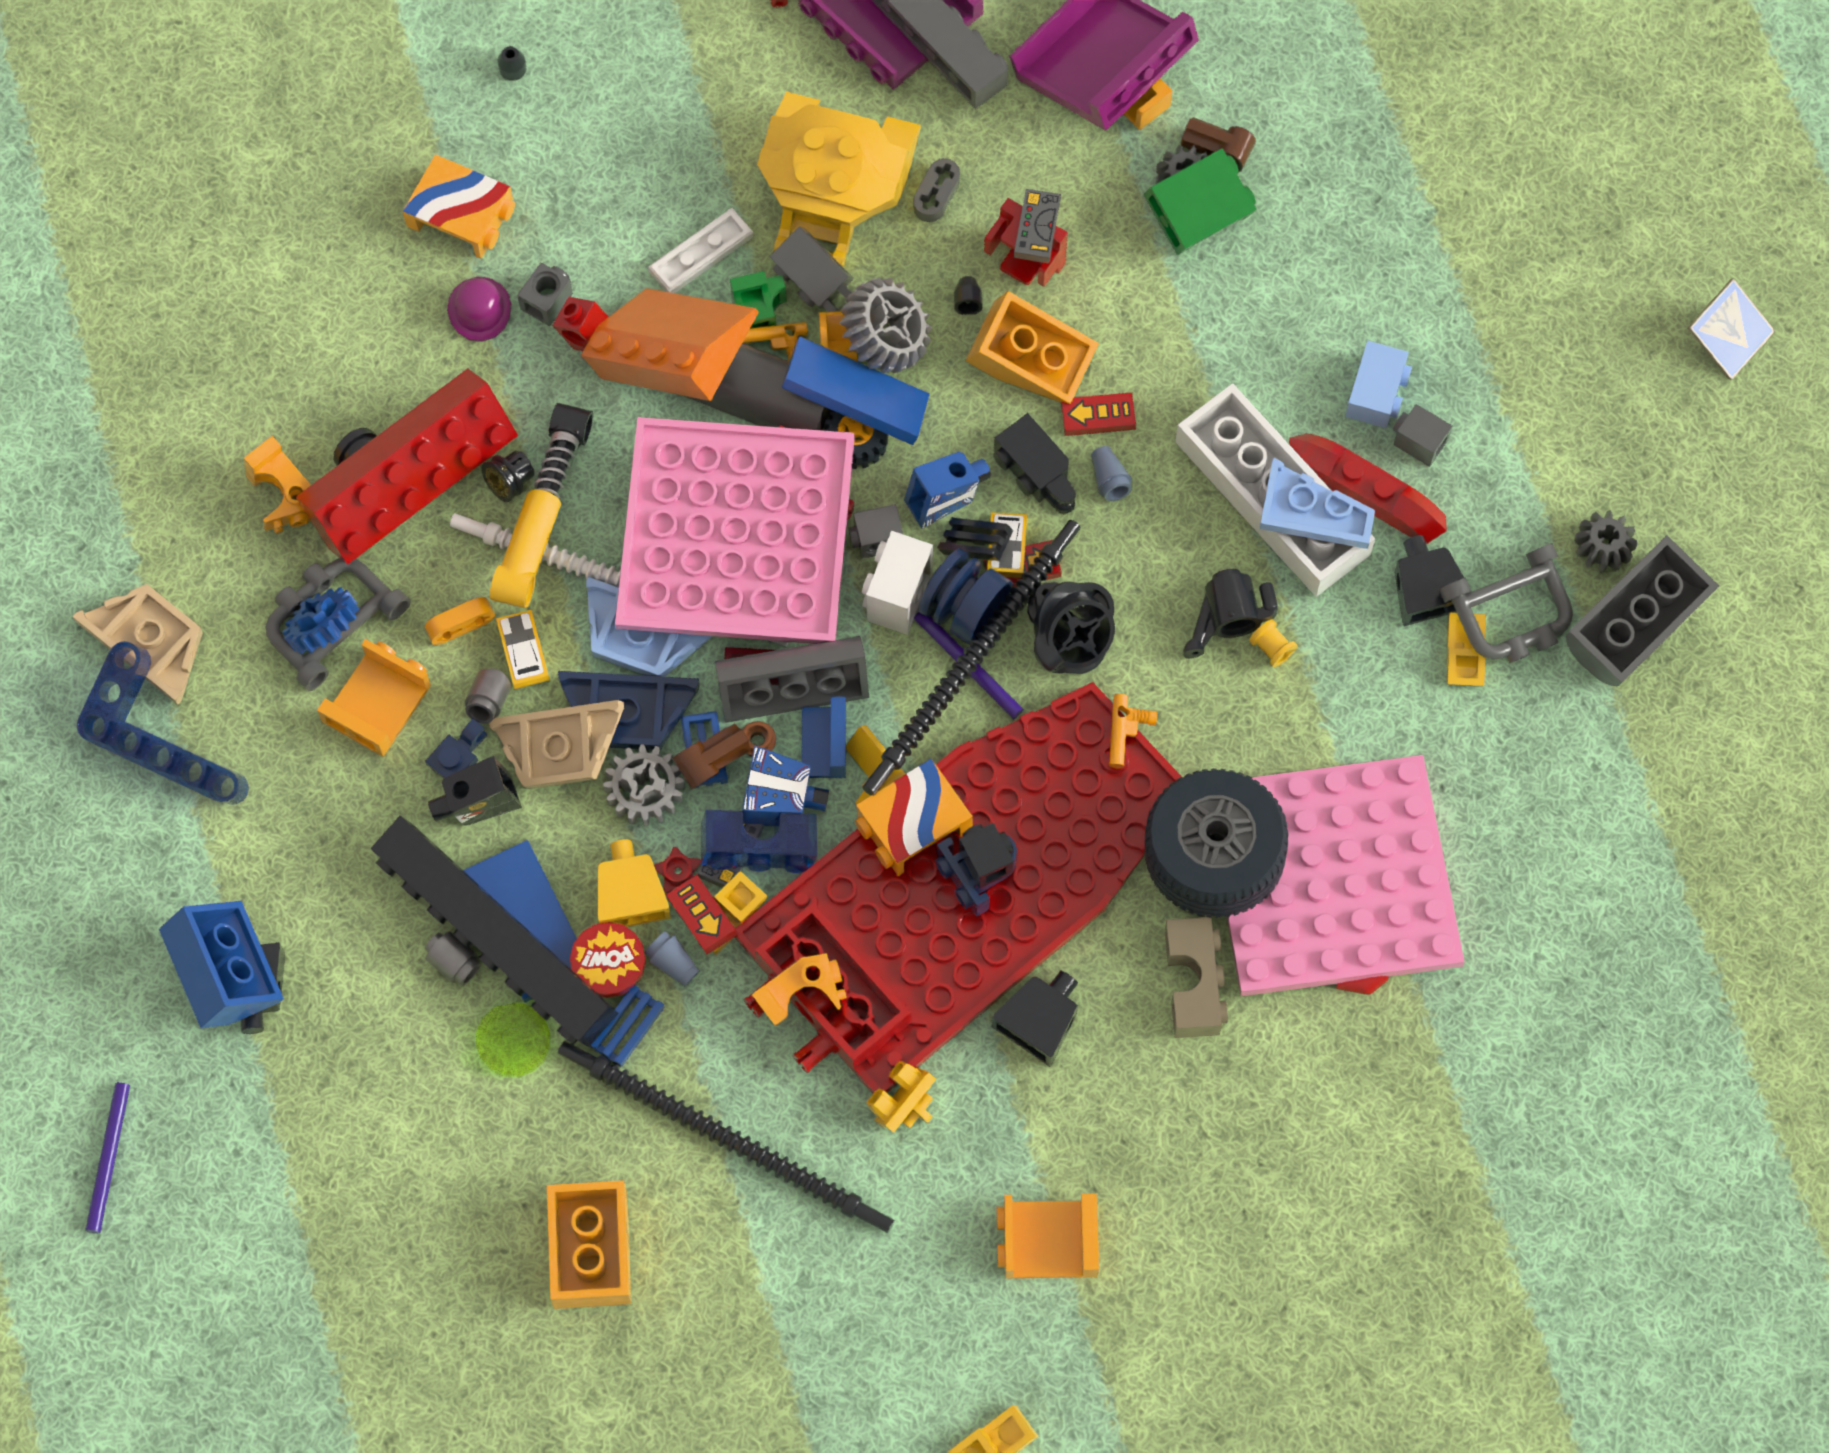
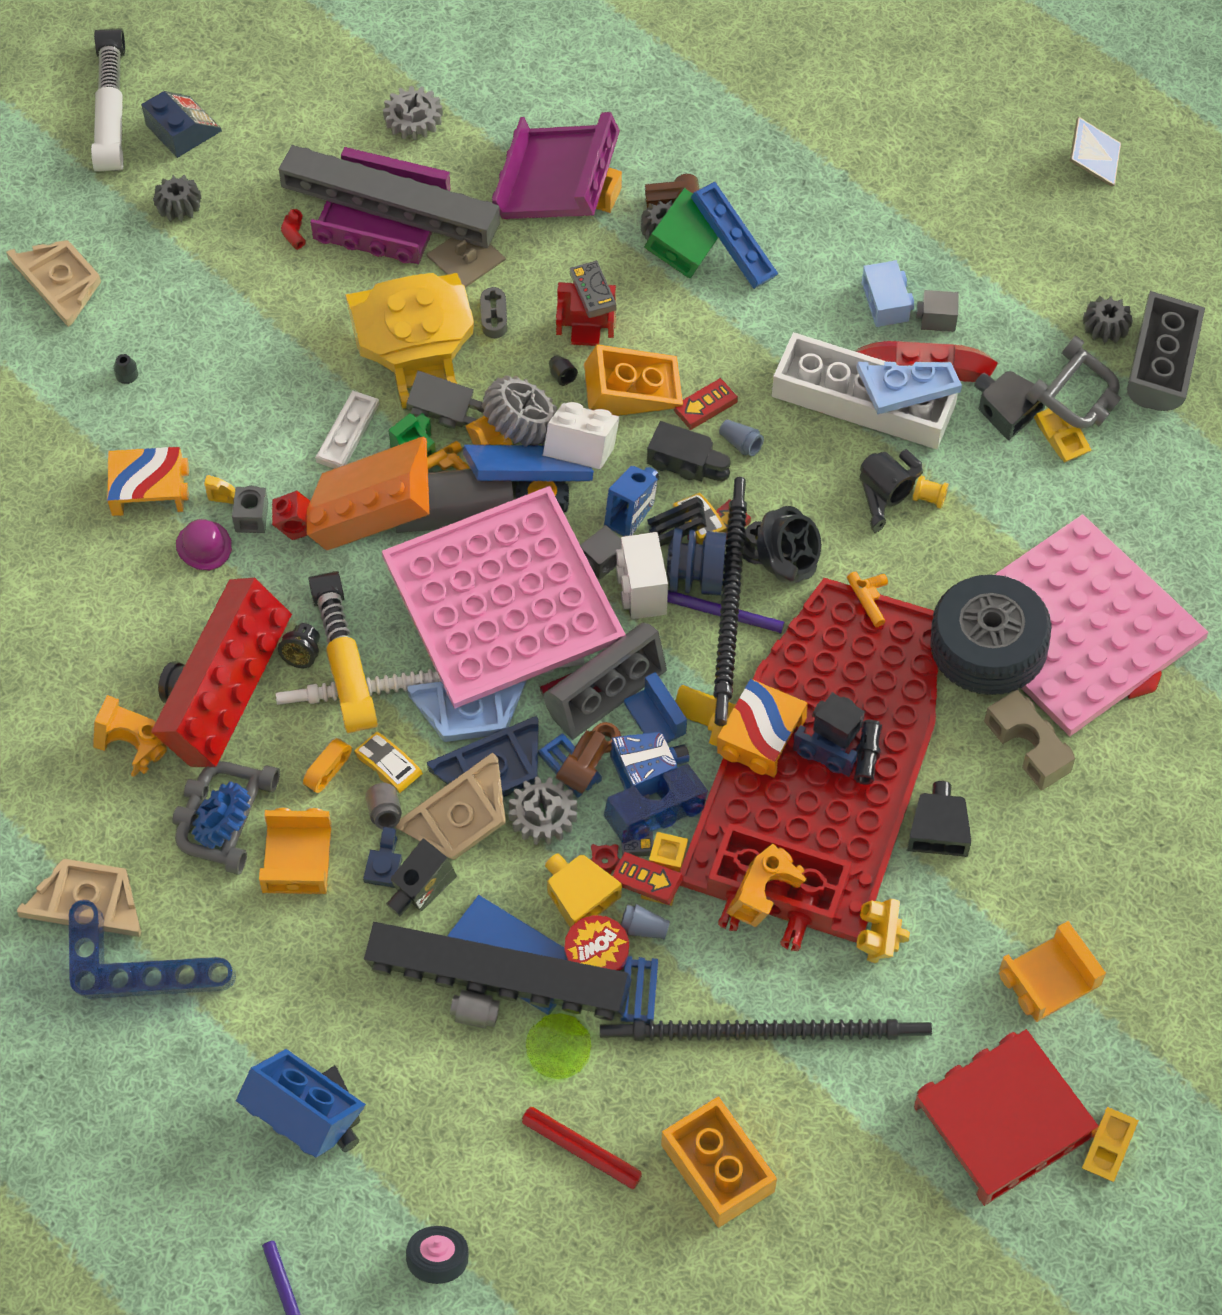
camera: 30 degrees left, 10 degrees down
(269, 1184) = (437, 1254): none -> black wheel
(472, 1155) = (582, 1147): none -> red axle
(526, 253) = (219, 490): none -> yellow tile
(904, 1356) = (1006, 1114): none -> red panel
(932, 387) = (581, 435): none -> white brick
(945, 111) = (465, 259): none -> dark tan piece
(1009, 901) = (868, 752): none -> black pin
(1248, 230) = (734, 235): none -> blue tile

